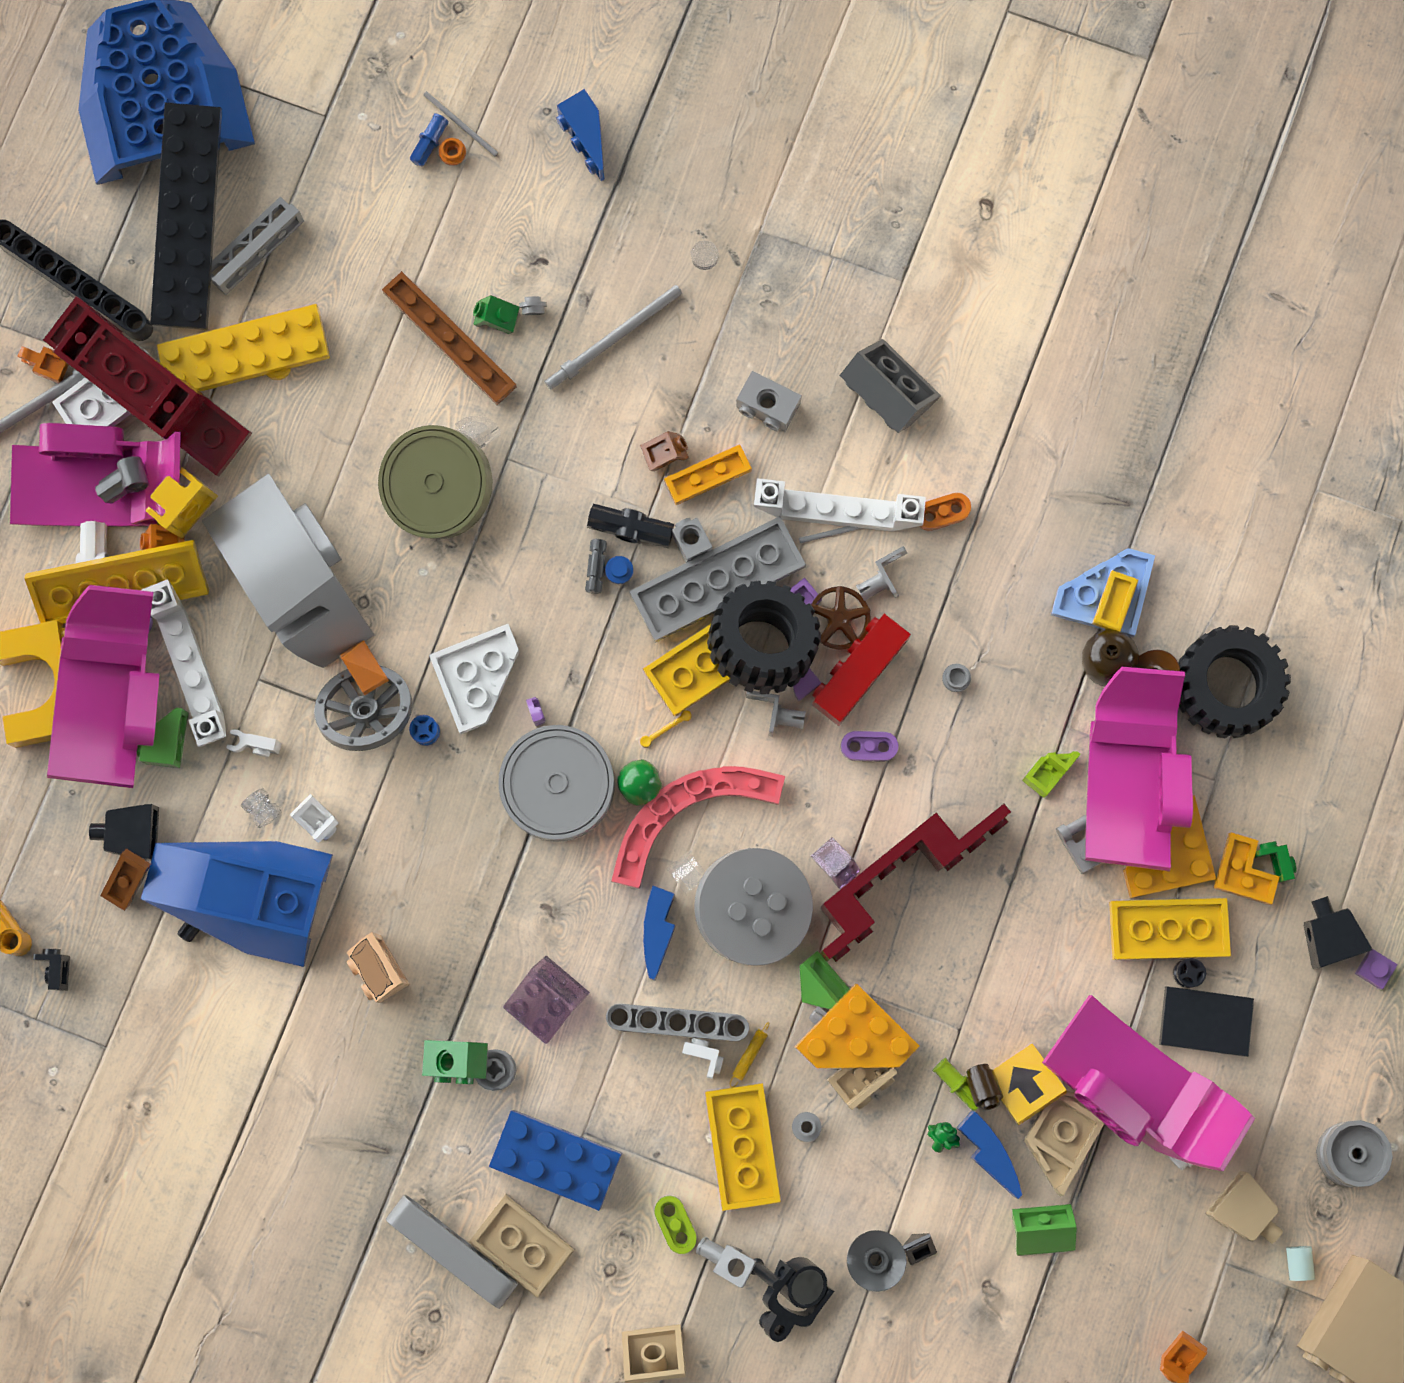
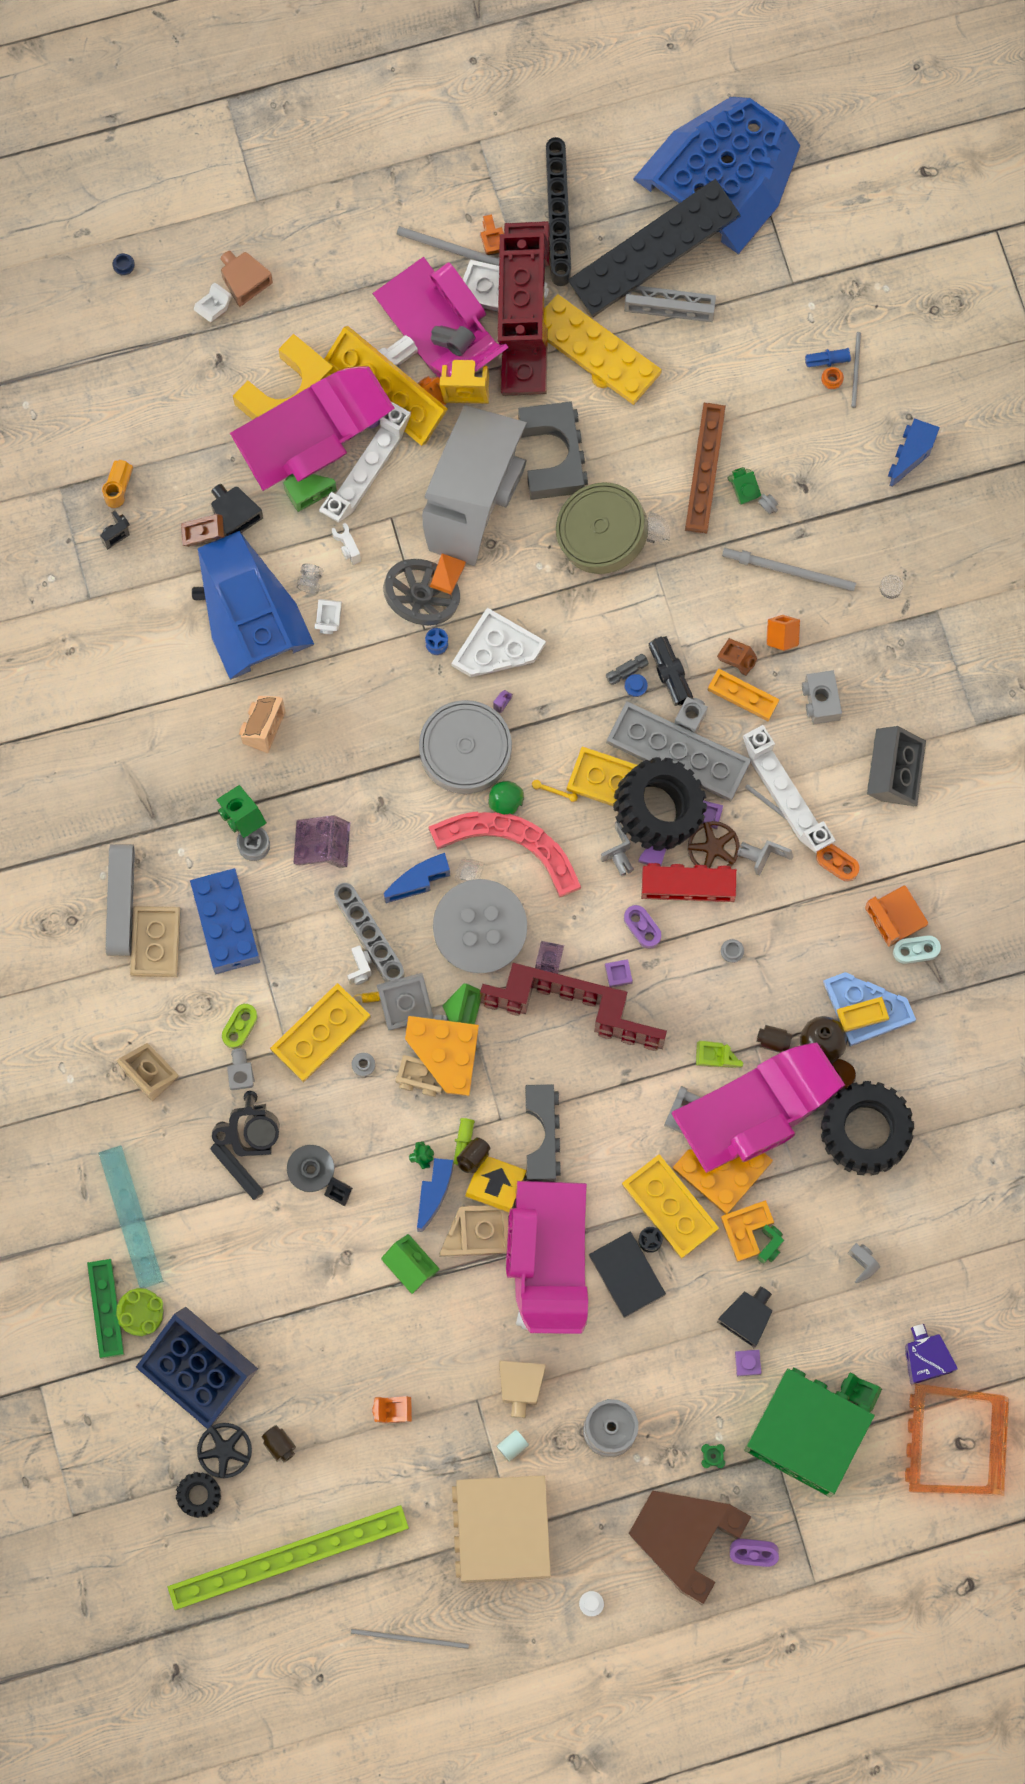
camera: 50 degrees right, 5 degrees down
(293, 440) = (559, 421): none -> dark grey arch
(674, 389) = (783, 632): none -> orange panel
(774, 1037) = (404, 999): none -> light grey tile
(825, 1337) = (237, 1171): none -> black axle
(899, 804) = (618, 973): none -> medium lavender plate
(1037, 496) = (896, 915): none -> orange bracket
(1038, 1023) = (540, 1104): none -> dark grey arch
(1075, 703) = (774, 1038): none -> dark brown brick
(1083, 503) = (916, 949): none -> light aqua plate
(1350, 780) = (863, 1256): none -> light grey plate

